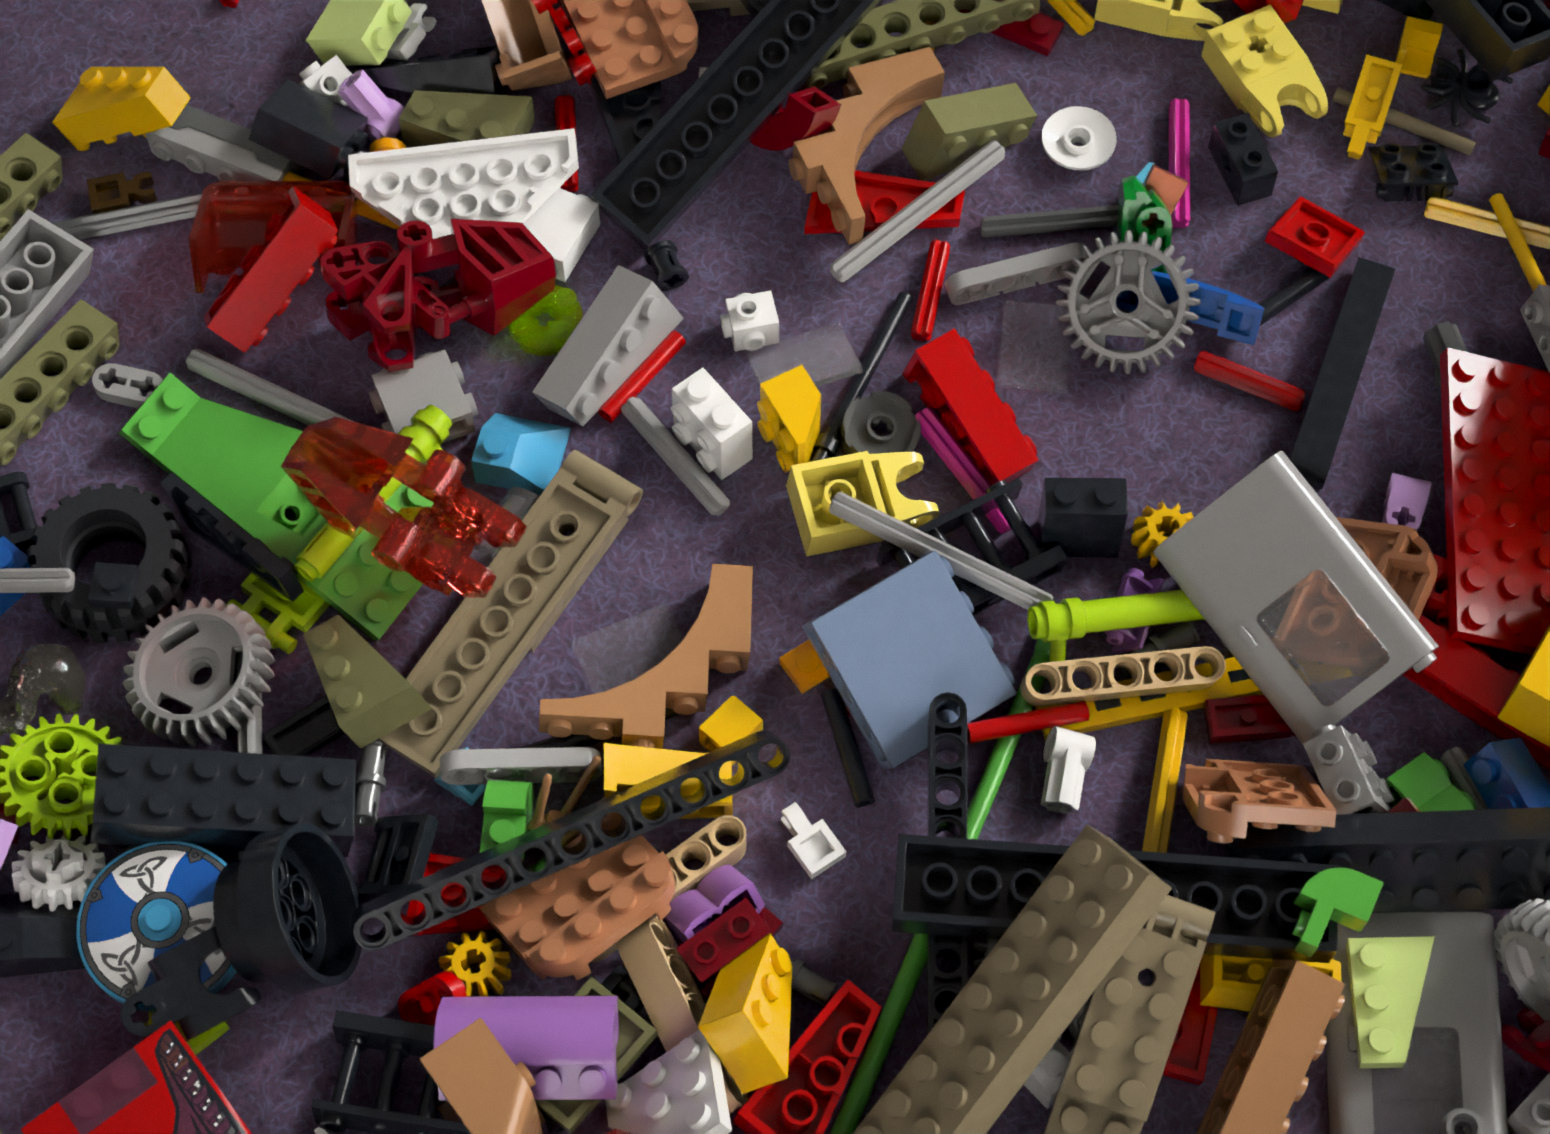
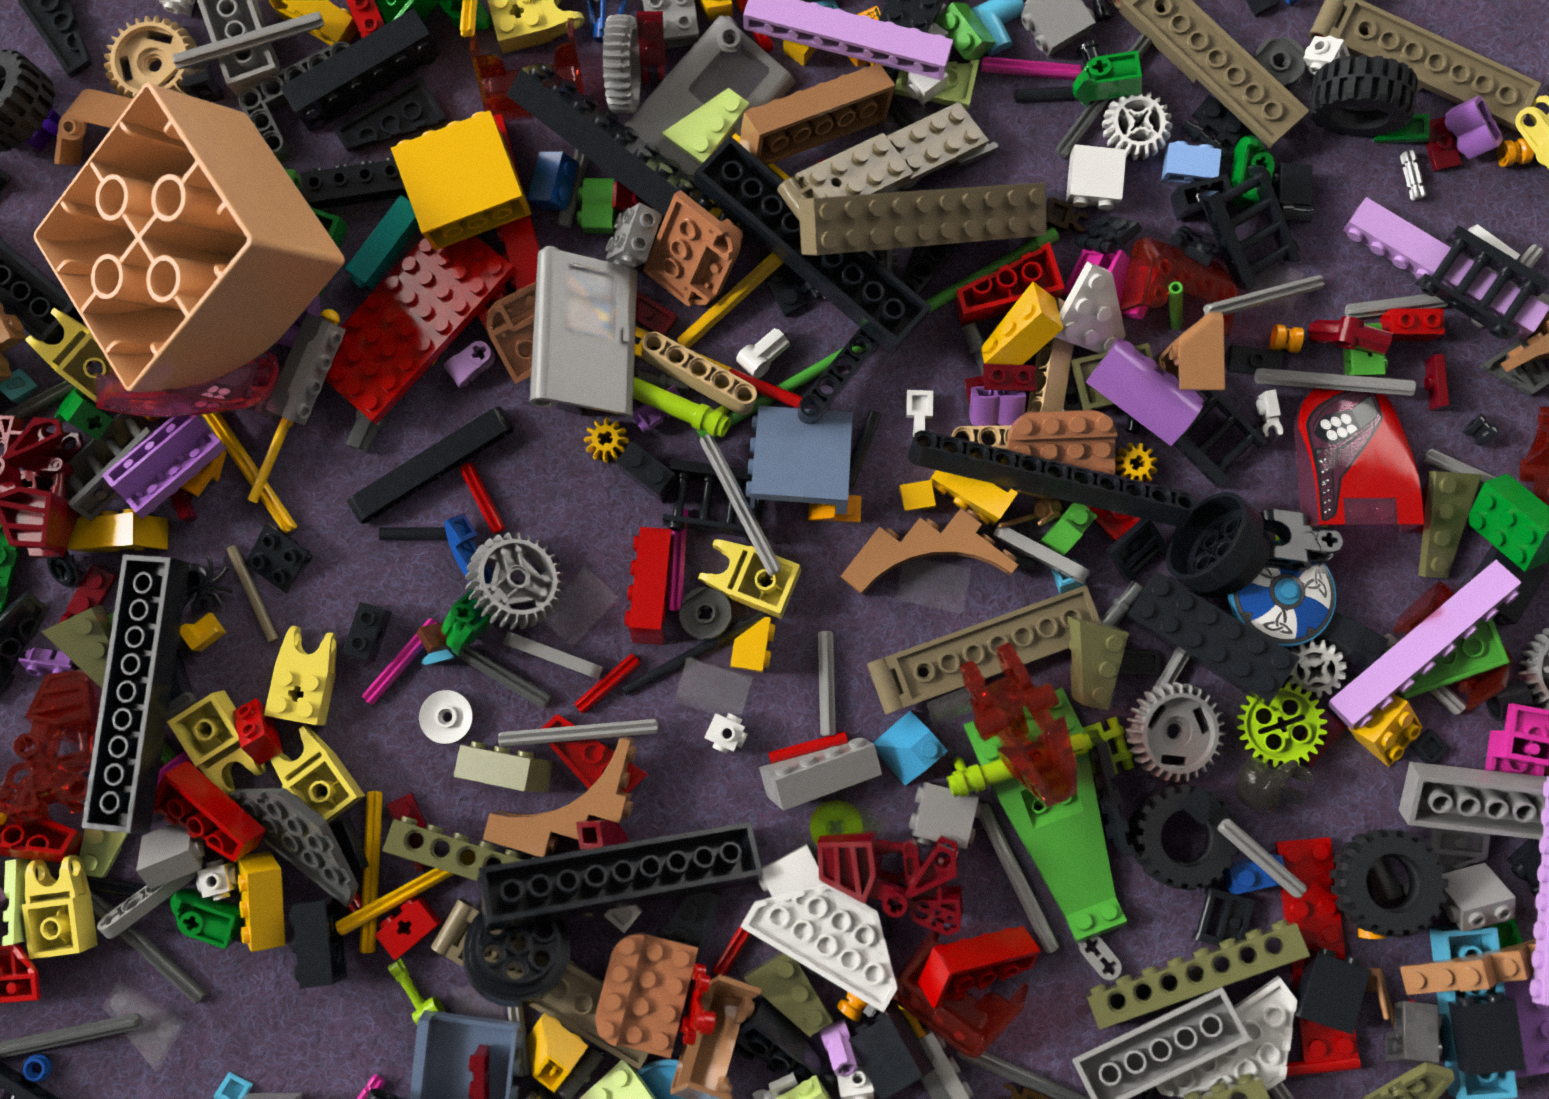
camera: 140 degrees left, 20 degrees up
(423, 1000) = (1169, 458): red plate -> none
(666, 265) = (743, 808): black bush -> none
(711, 424) = (798, 677): white brick -> none
(1314, 236) = (371, 554): red tile -> none
(1335, 895) = (716, 154): bright green brick -> none
(1370, 103) = (264, 611): yellow hinge -> none

